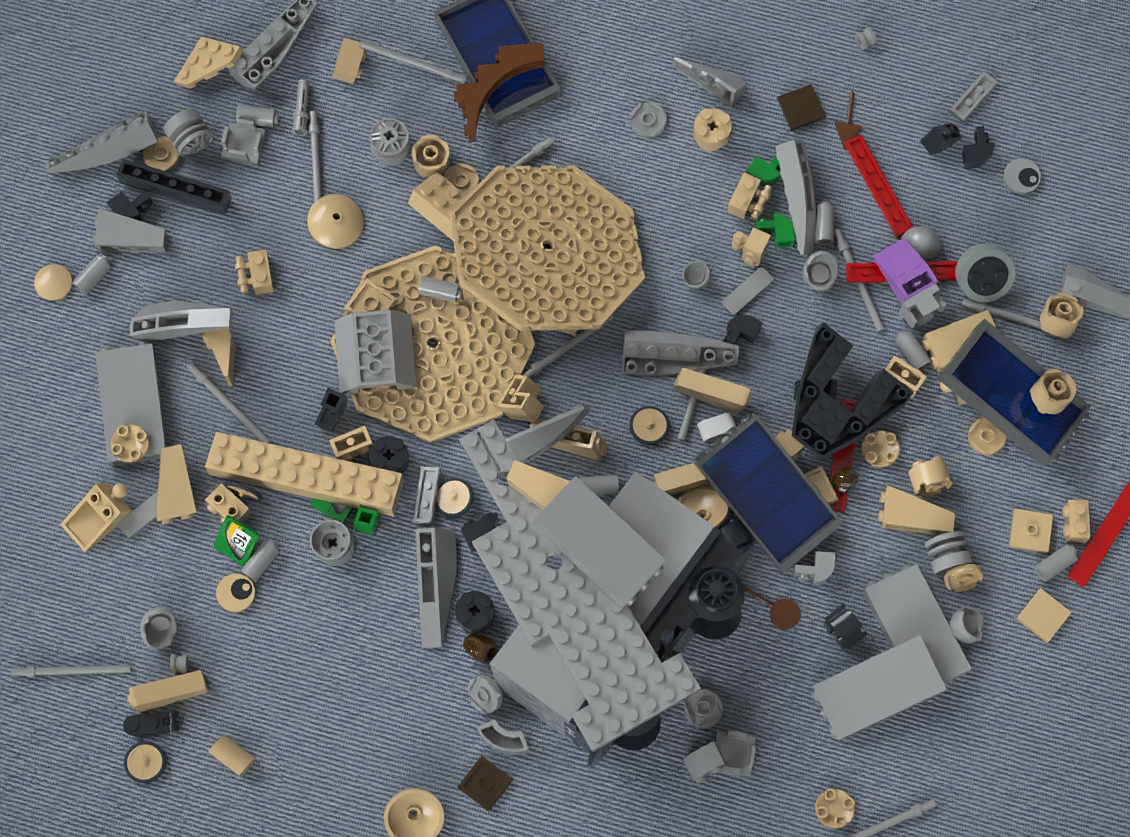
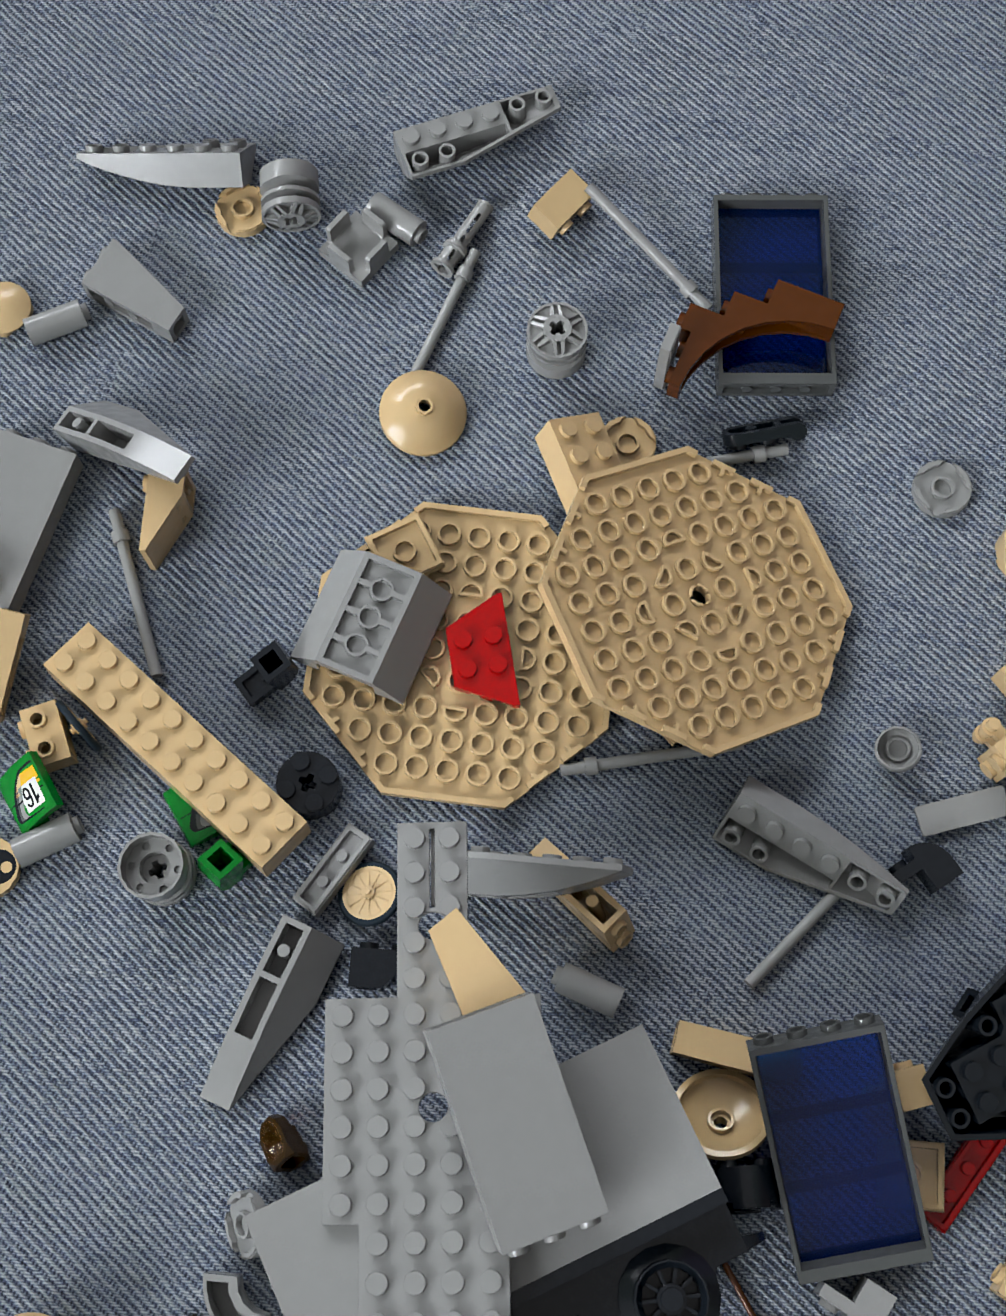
camera: 30 degrees right, 0 degrees up
(121, 205) = (160, 262): black brick -> none
(174, 186) = (231, 258): black brick -> none
(206, 60) = (372, 112): tan plate -> none
(260, 273) = (279, 432): tan brick -> none
(351, 444) = (265, 739): tan brick -> none
(428, 146) = (603, 372): tan brick -> none
(439, 289) = (511, 580): light grey brick -> none
(445, 338) = (483, 653): none -> red wing
(458, 120) = (667, 354): none -> light grey tile
(465, 607) = (284, 1087): black brick -> none
(521, 400) = (541, 800): tan brick -> none
(534, 136) = (764, 432): none -> black plate
(649, 425) = (712, 938): tan wheel -> none
(712, 390) = (835, 938): tan slope -> none
(715, 427) = (813, 995): white beam -> none
(844, 480) = (969, 1187): dark brown rock -> none

